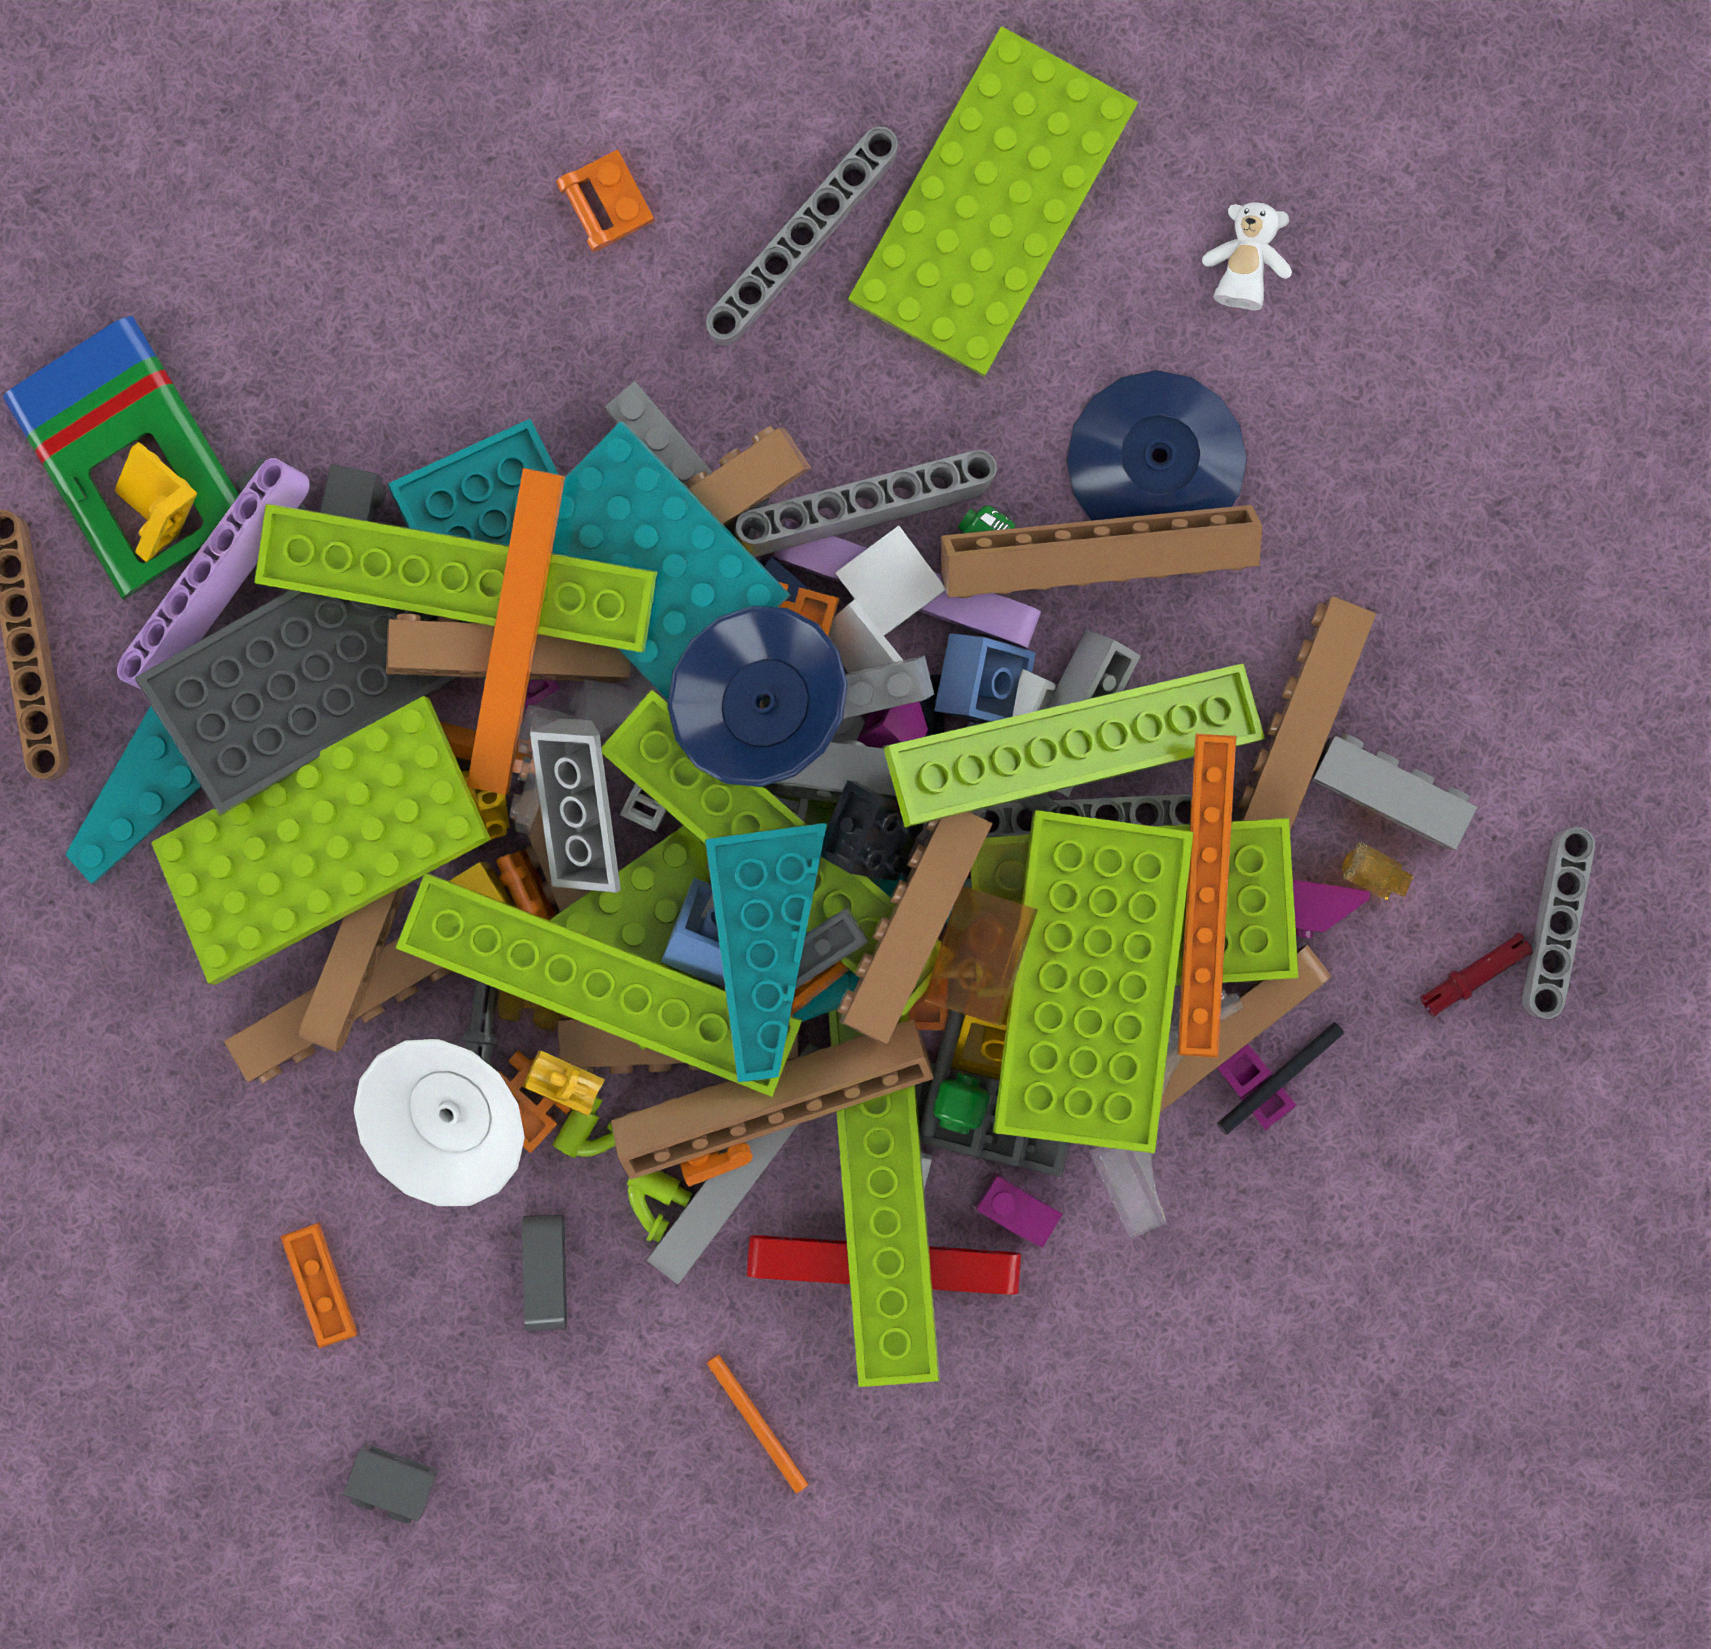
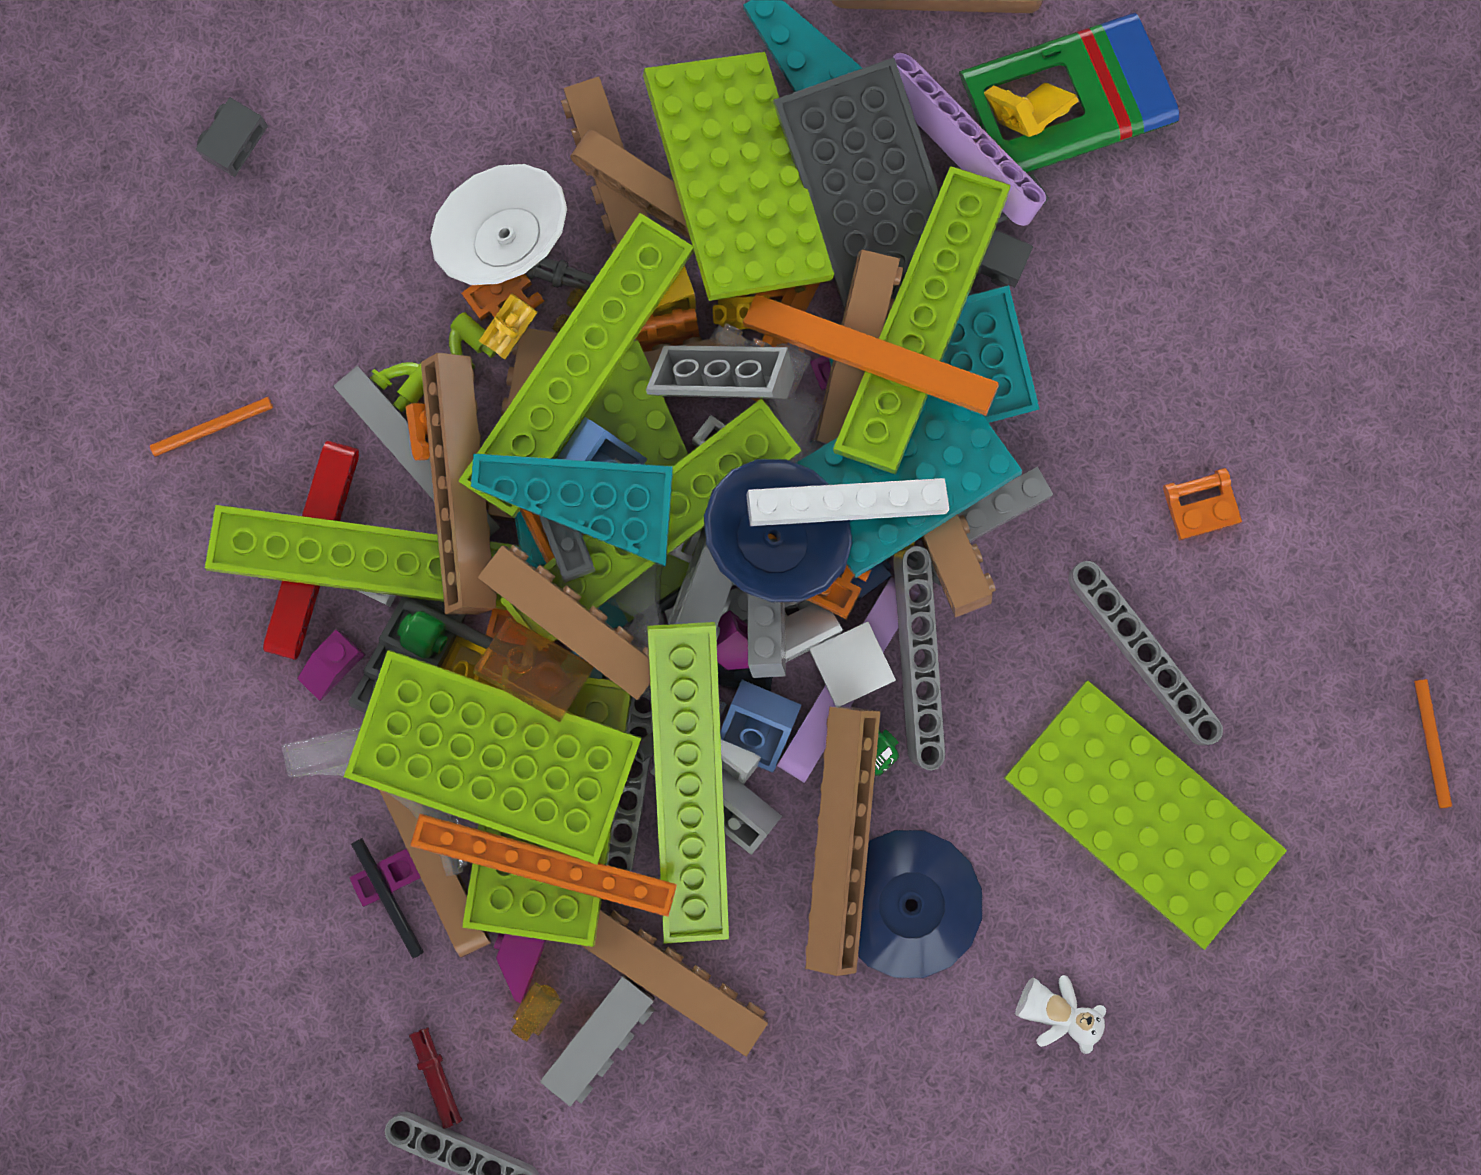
camera: 100 degrees right, 5 degrees down
(319, 1285) = (396, 114): orange tile -> none
(544, 1272) = (366, 285): dark grey beam -> none
(706, 620) = (847, 502): none -> white plate
(868, 834) = (648, 597): black bracket -> none

